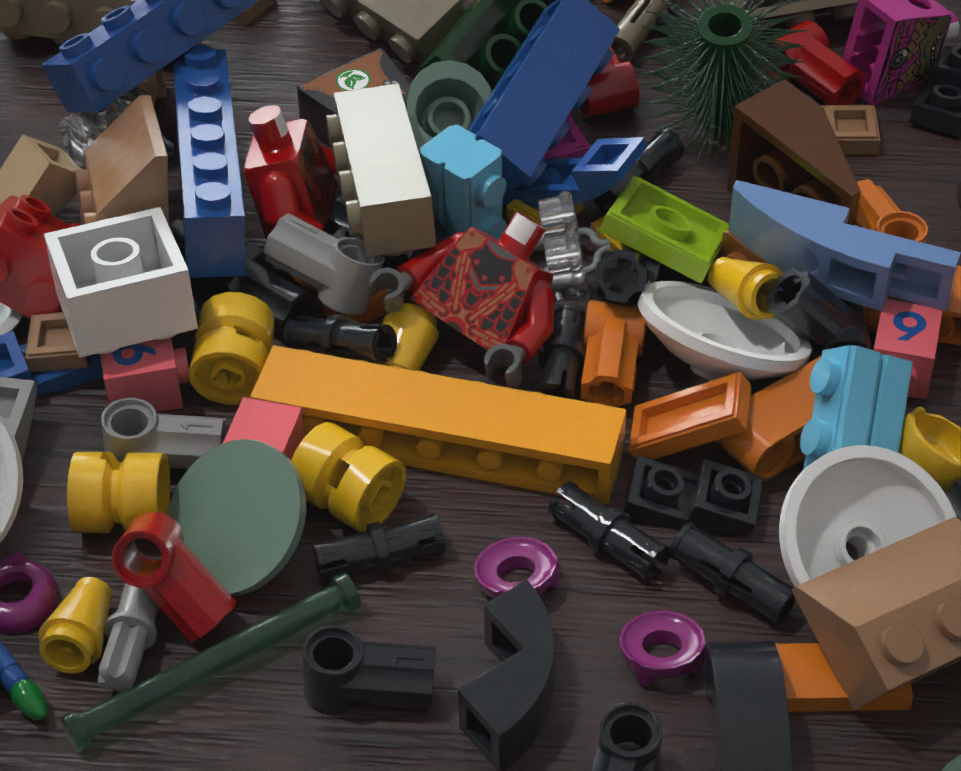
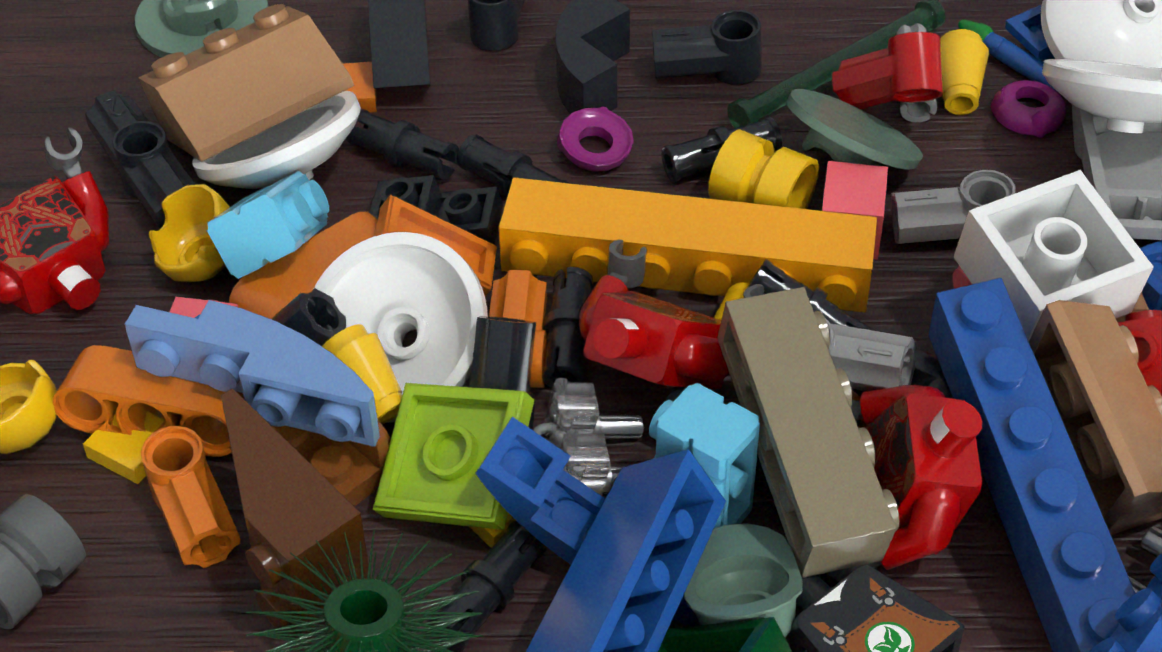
camera: 175 degrees right, 0 degrees up
(114, 491) = (952, 143): yellow wheel -> none
(231, 346) = (906, 283): yellow wheel -> none
(659, 628) = (463, 77): magenta piece -> none

